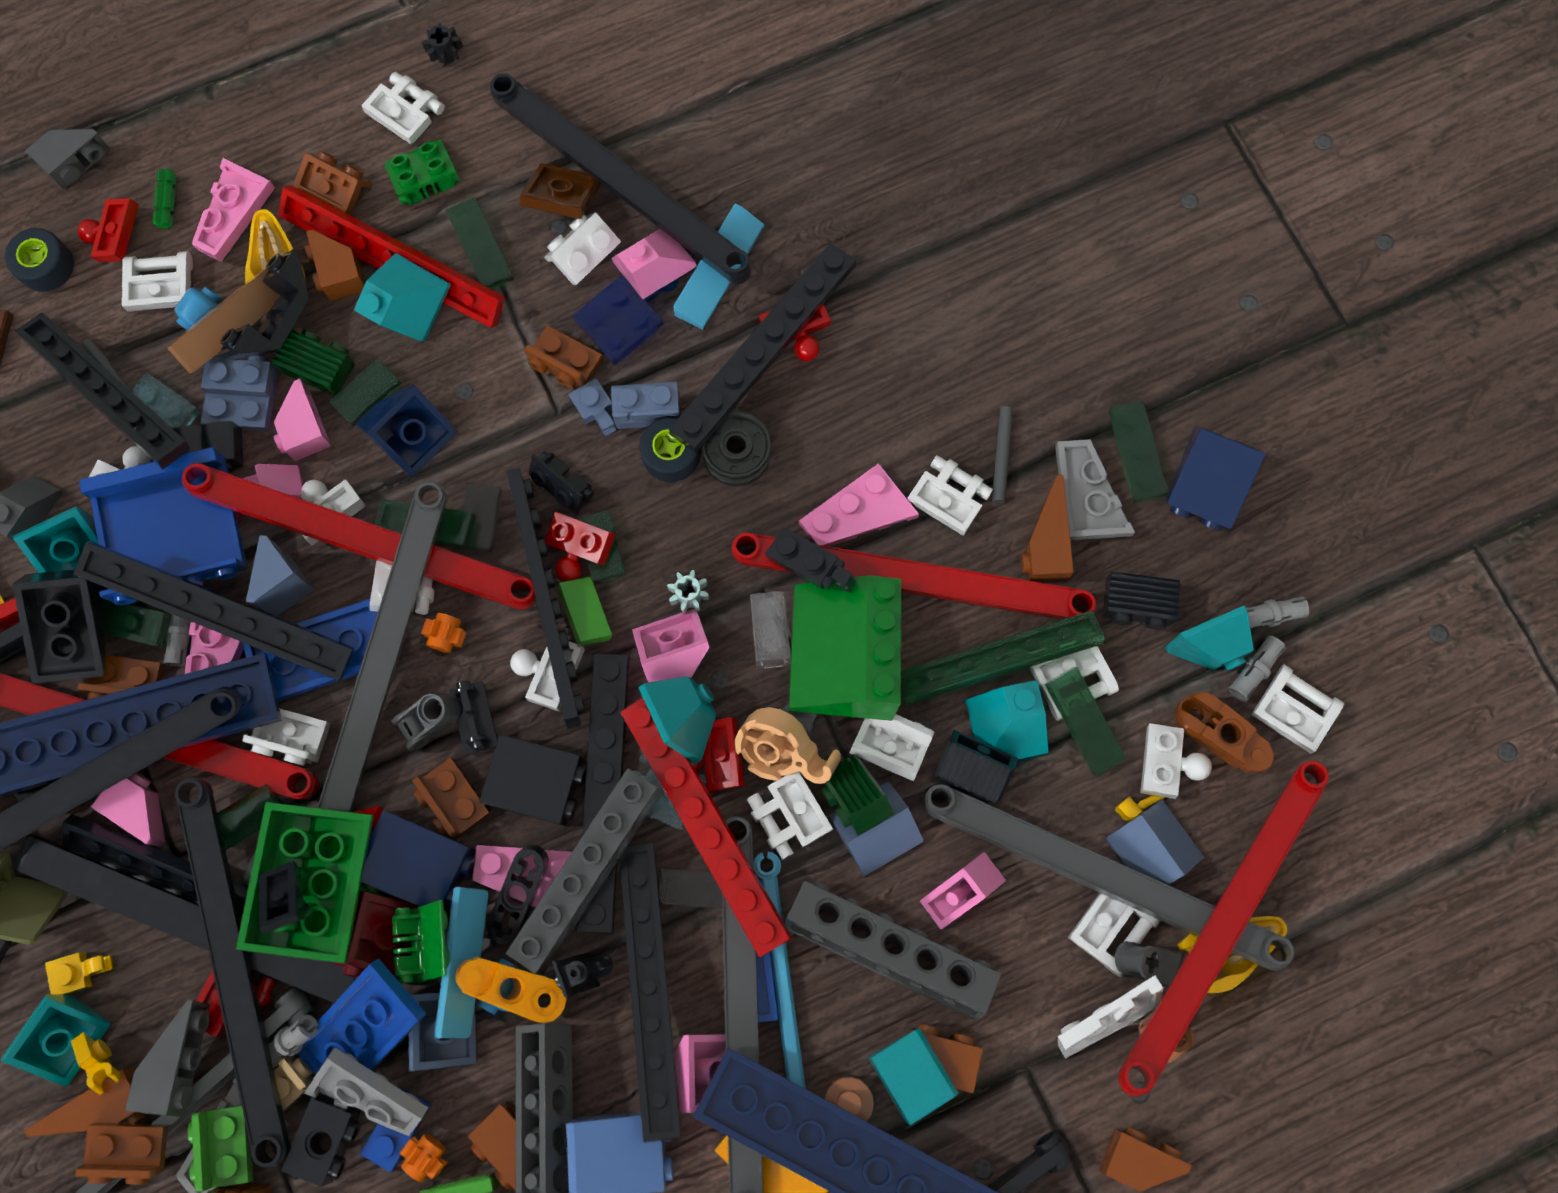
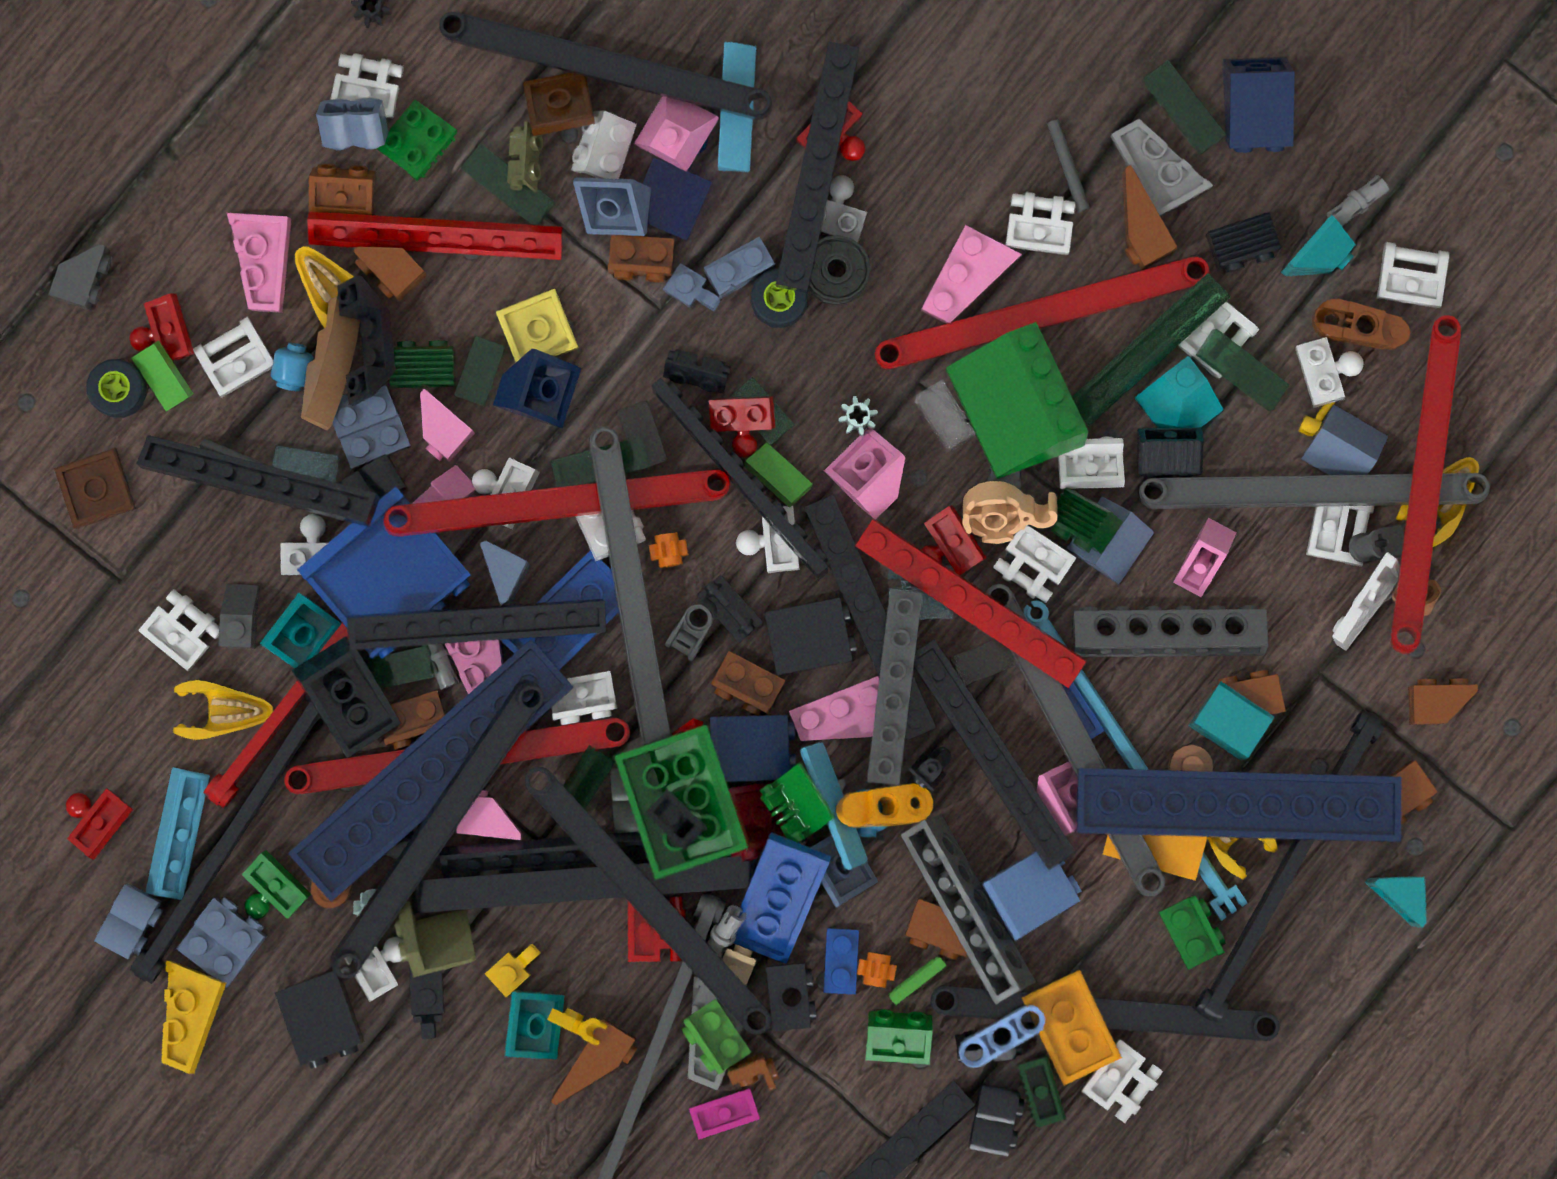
camera: 30 degrees left, 10 degrees up
(83, 266) = (162, 376): none -> bright green tile
(123, 1152) = (642, 1076): dark orange bracket -> none
(164, 198) = (194, 276): green axle -> none
(167, 1072) = (642, 1001): dark grey slope -> none
(360, 1087) = (797, 939): light grey wing -> none
(369, 128) = (352, 123): none -> sand blue brick
(403, 297) = (473, 270): teal slope -> none
(439, 374) = (537, 325): none -> light yellow plate
(509, 223) = (526, 169): none -> olive hinge
(531, 888) = (854, 754): black beam -> none
(560, 295) = (613, 205): none -> sand blue slope
(681, 714) = (908, 522): teal slope -> none
(764, 404) = (841, 218): none -> light grey plate
(809, 561) = (951, 343): black hinge -> none
(1257, 668) = (1365, 256): light grey pin -> none

